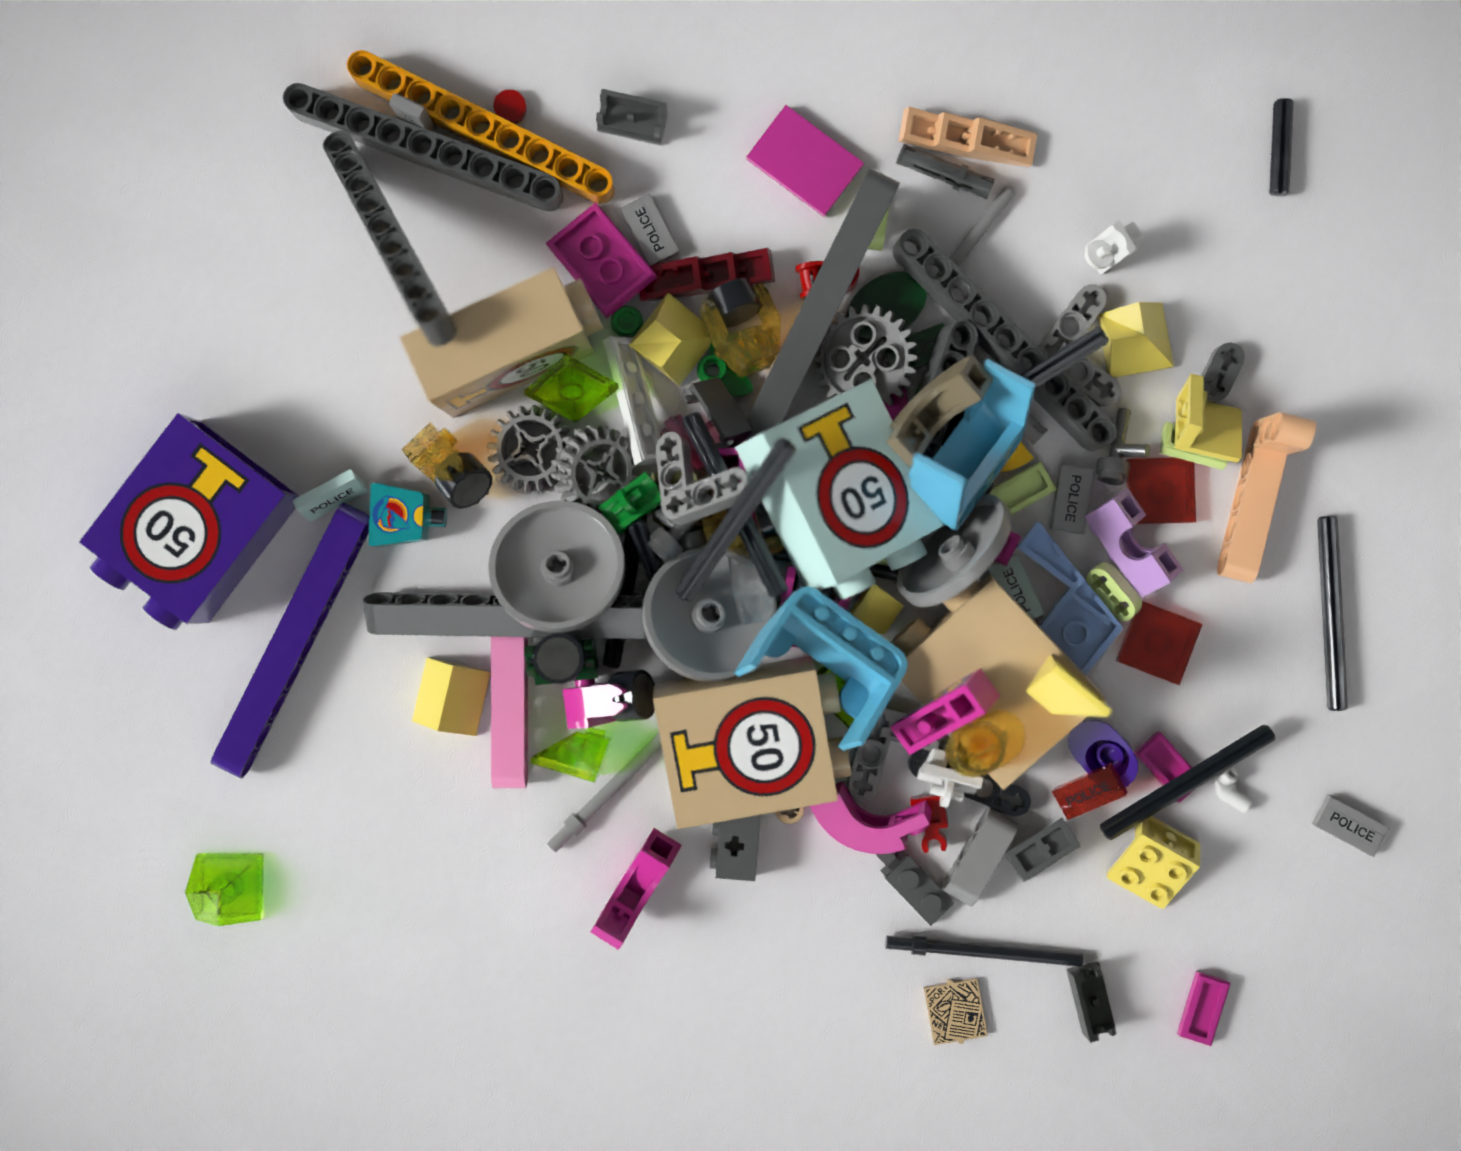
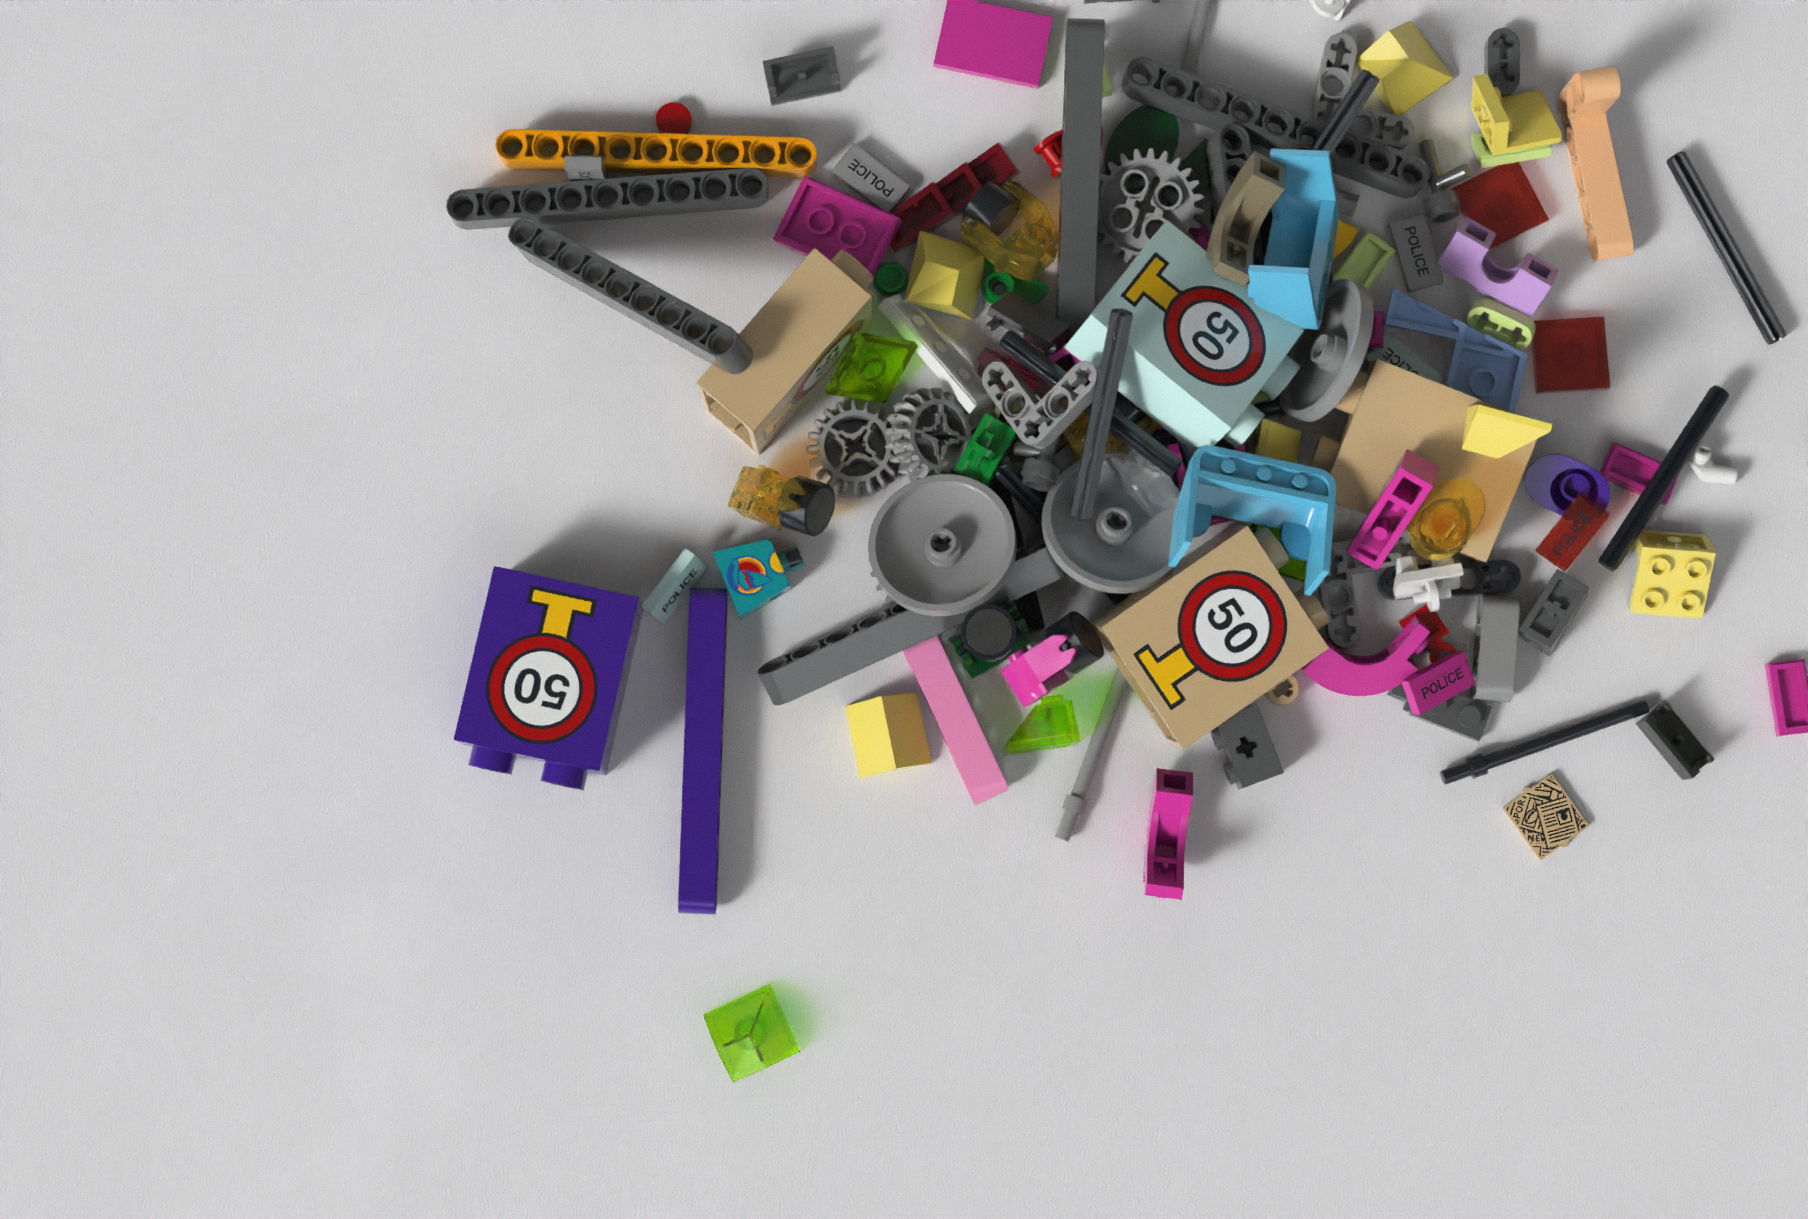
camera: 30 degrees left, 5 degrees down
(917, 866) = (1438, 682): none -> dark pink tile

